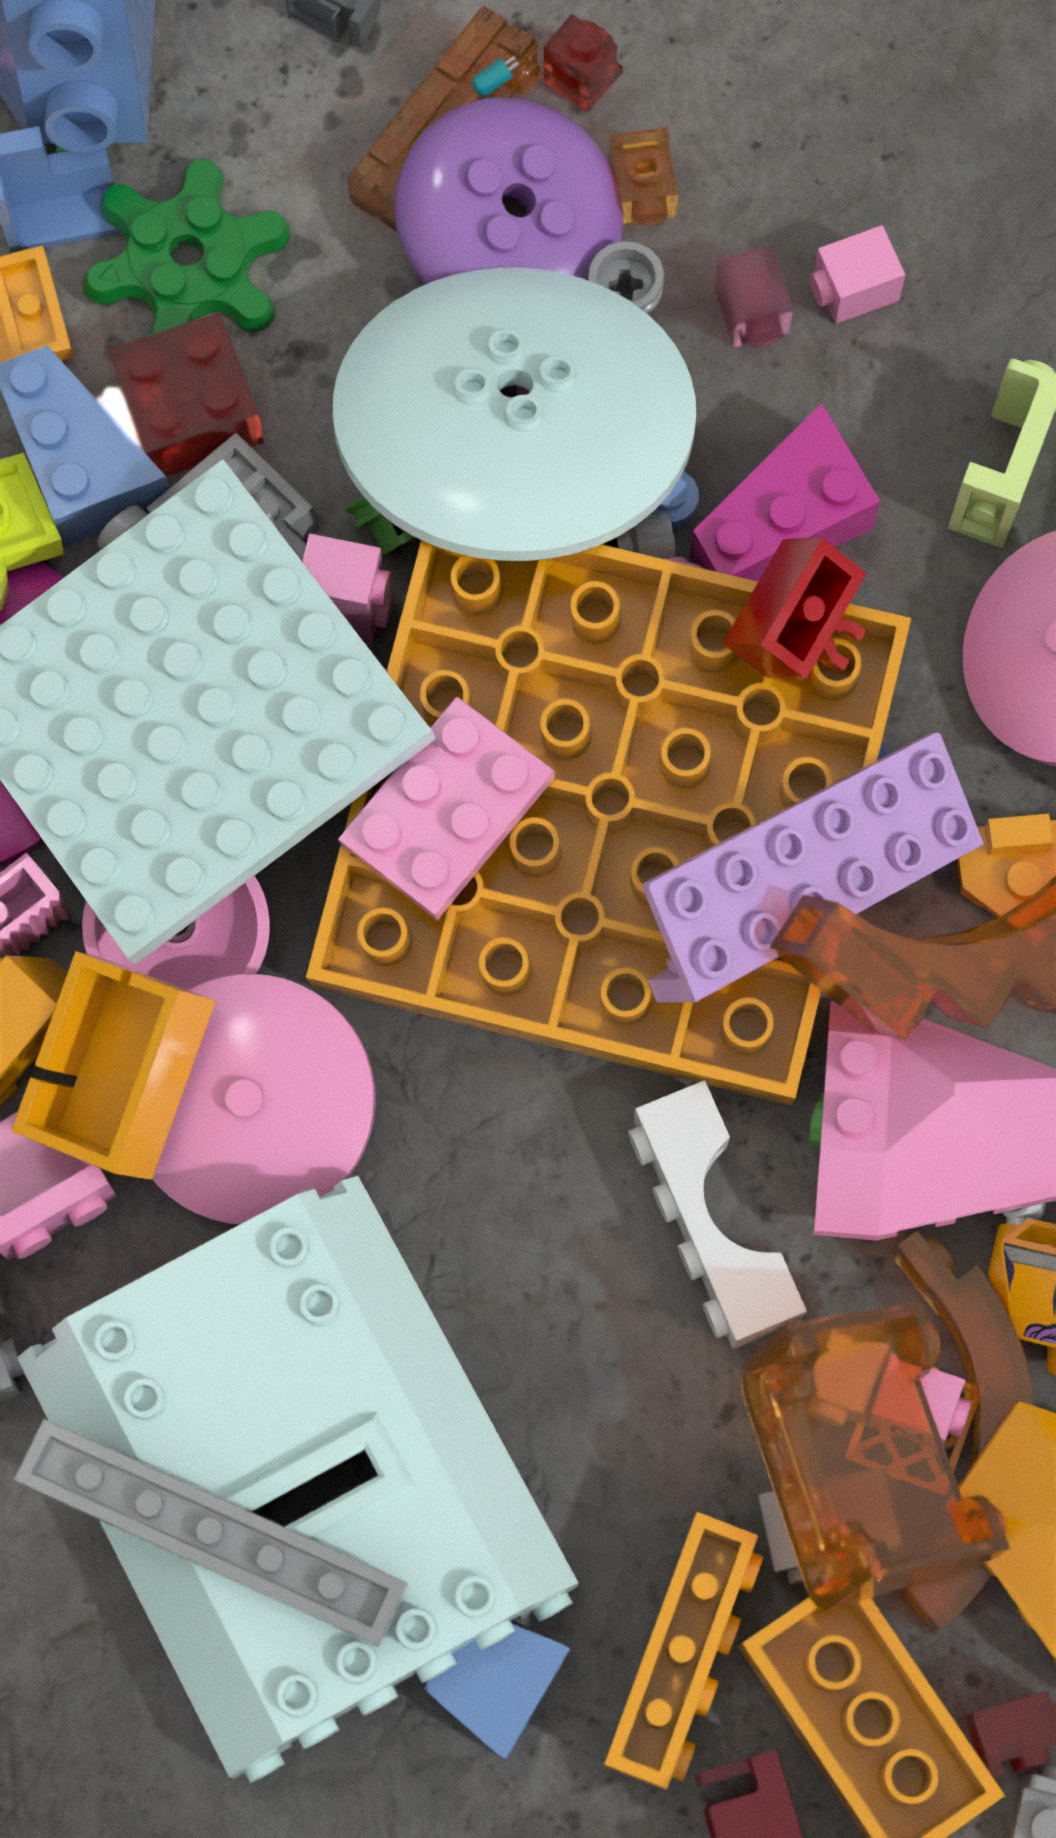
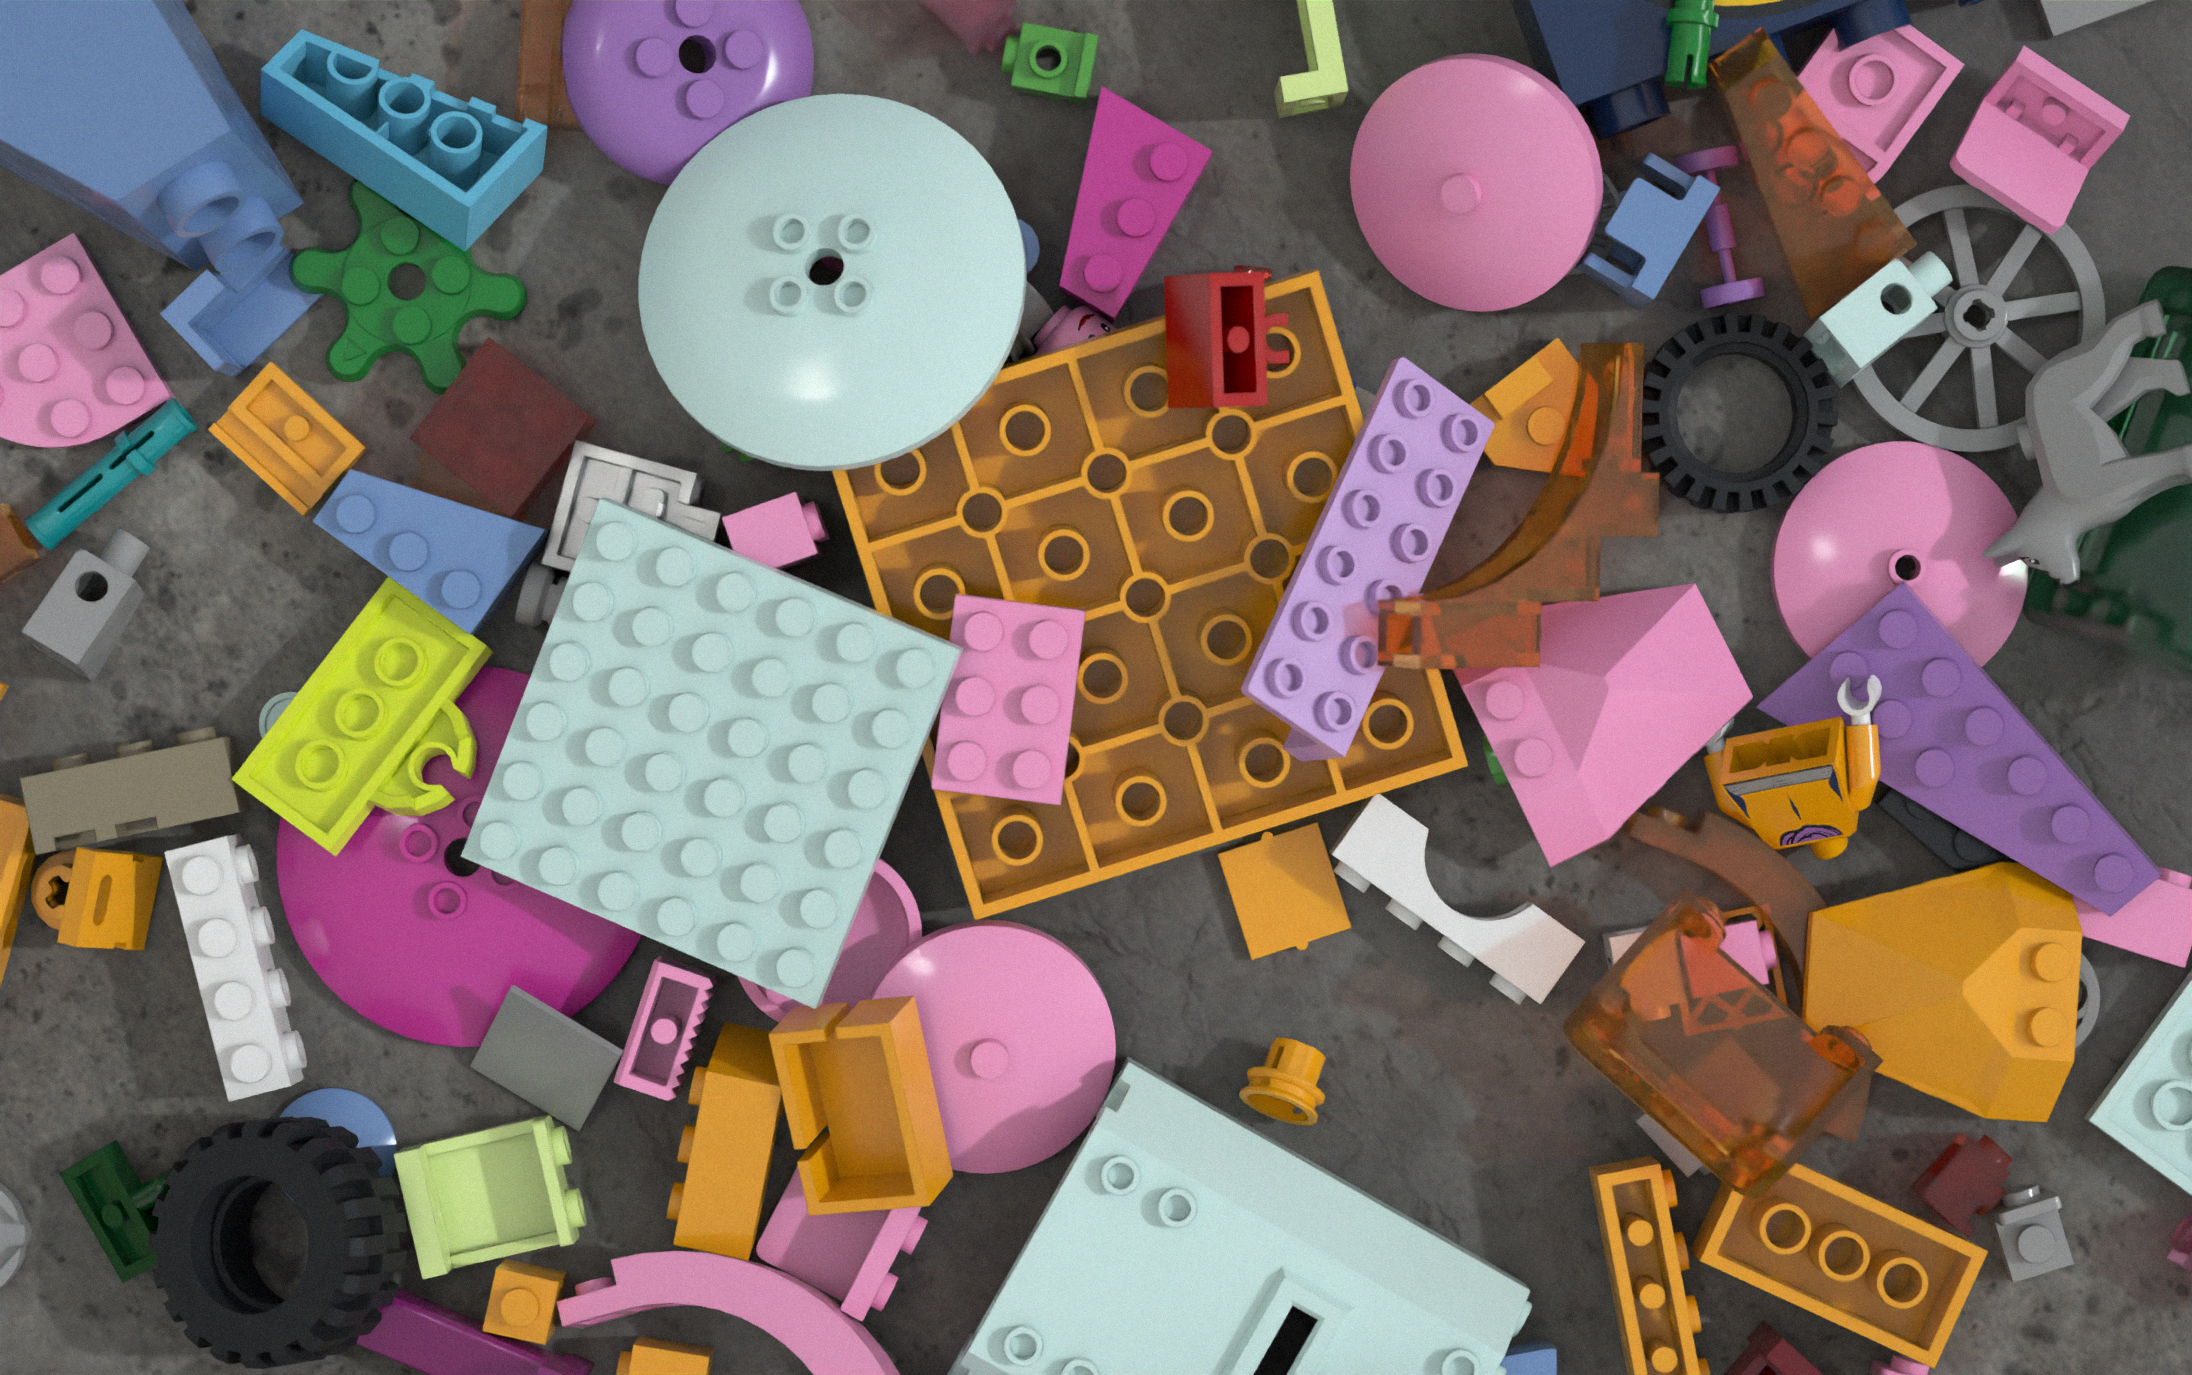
camera: 25 degrees left, 15 degrees up
(253, 140) = (399, 136): none -> medium azure wedge
(478, 1282) = (1286, 1083): none -> light orange piece
(577, 1129) = (1284, 890): none -> light orange piece
(630, 266) = (849, 42): light grey piece -> none
(787, 394) = (1067, 82): none -> bright green brick

